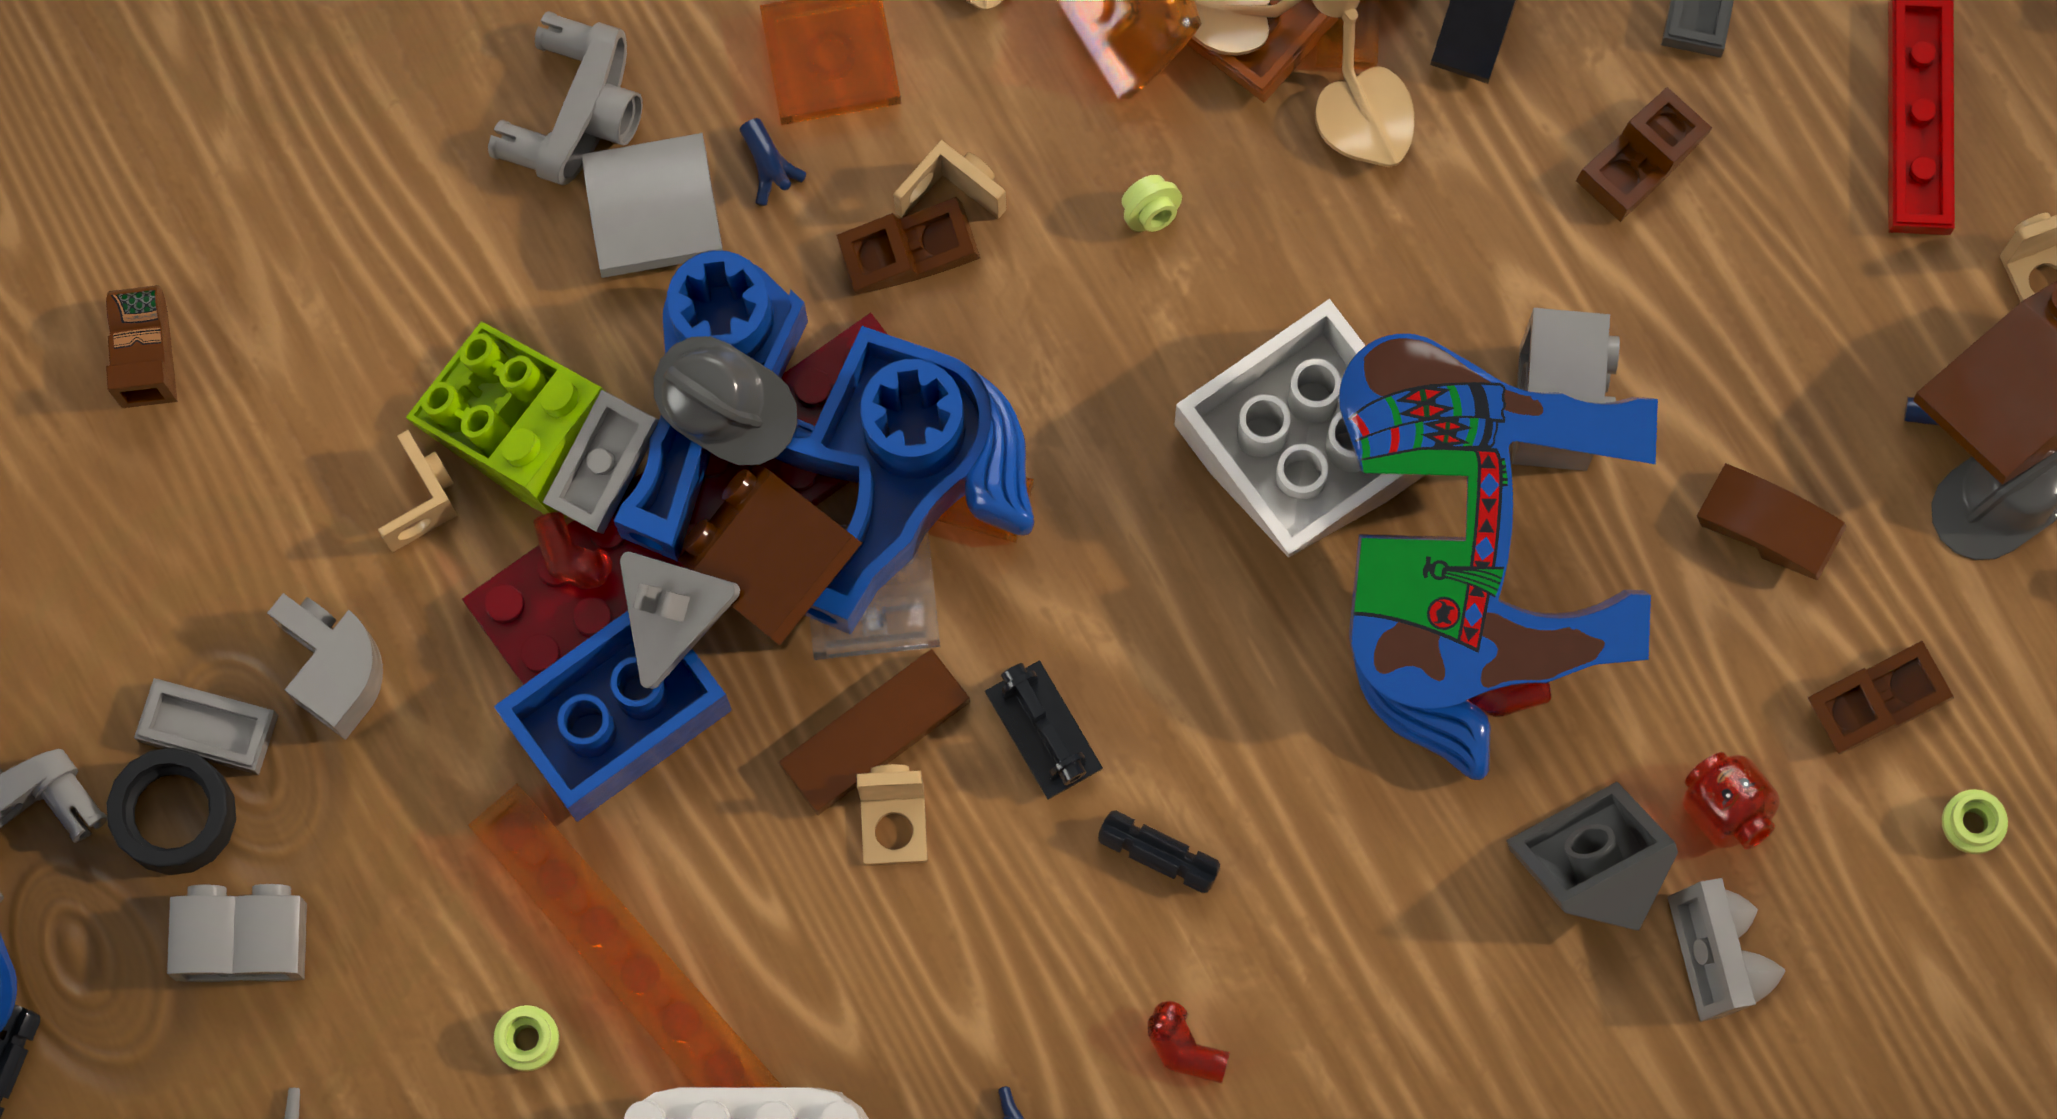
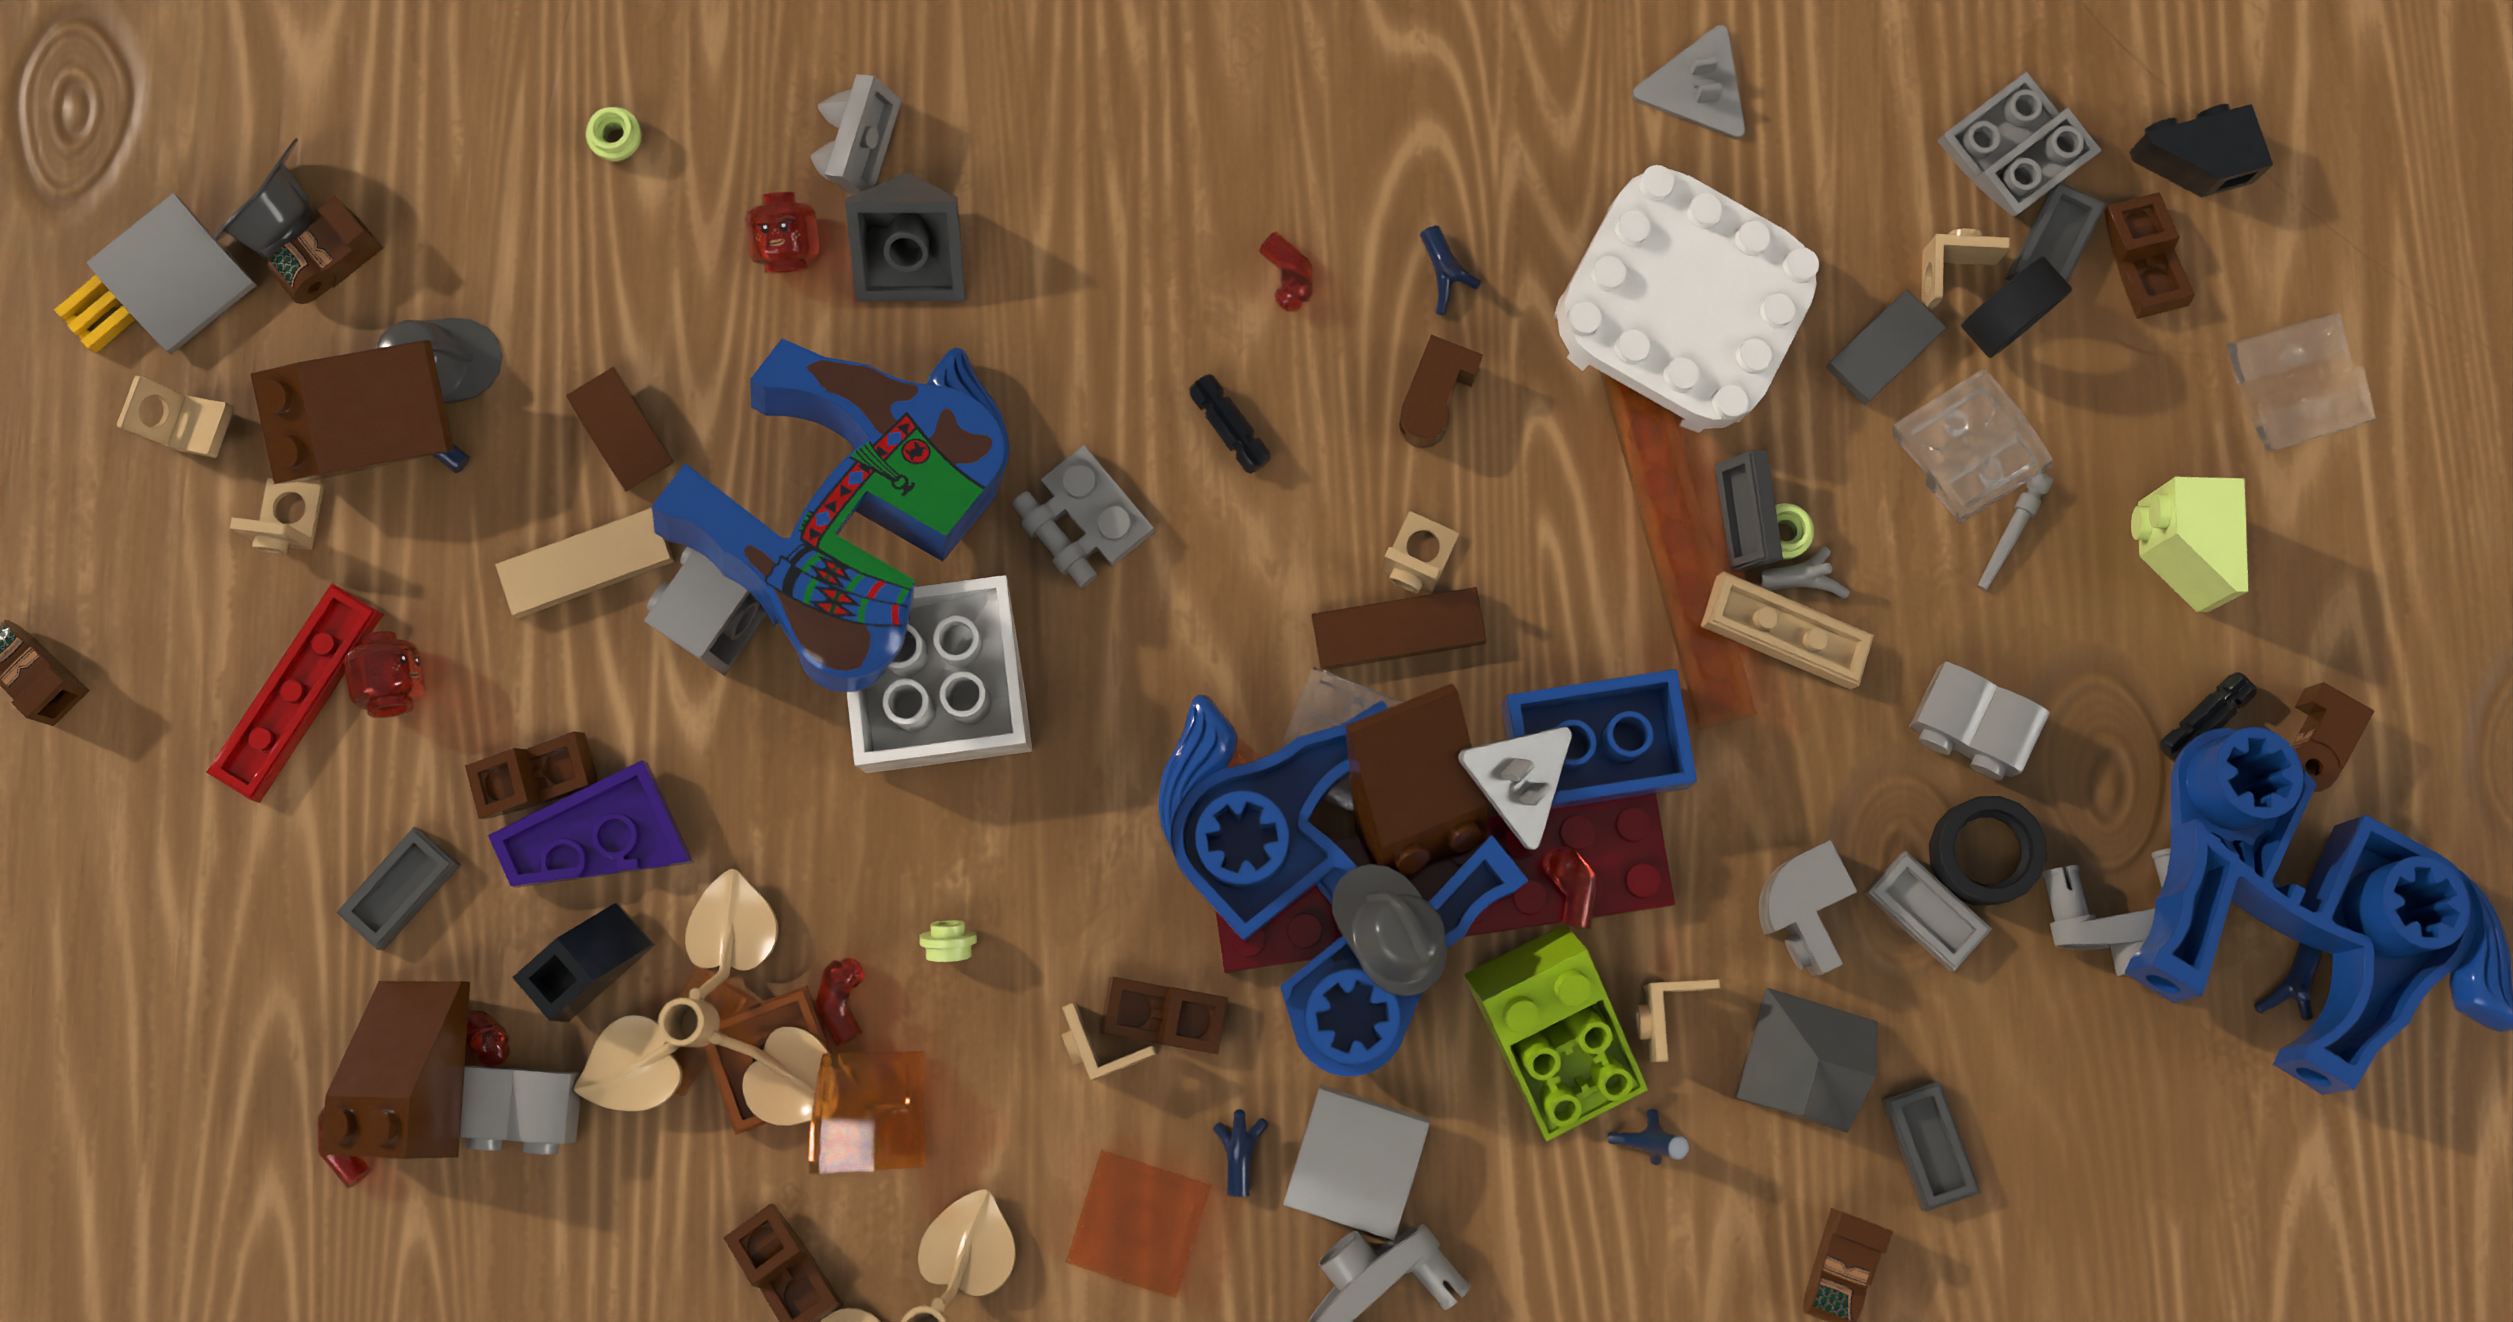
camera: 150 degrees left, 5 degrees up
(105, 503) = (1931, 1146): none -> dark grey tile
(260, 520) = (1809, 1060): none -> dark grey slope
(377, 366) = (1653, 1140): none -> dark blue bar
(475, 927) = (1787, 630): none -> tan tile
(486, 1002) = (1805, 574): none -> light grey bar
(574, 1033) = (1748, 511): none -> dark grey tile
(602, 462) = (1511, 941): light grey tile -> none
(964, 969) = (1426, 404): none -> reddish brown leg
(1043, 728) = (1267, 561): black hinge -> none
(1230, 101) = (833, 998): none -> clear red arm
(1245, 695) = (1095, 505): none -> light grey plate
(1549, 132) = (594, 833): none -> dark purple wing
(1725, 375) = (583, 564): none -> tan tile
(1841, 165) = (384, 675): none -> clear red head
(1880, 698) = (623, 259): reddish brown slope -> none

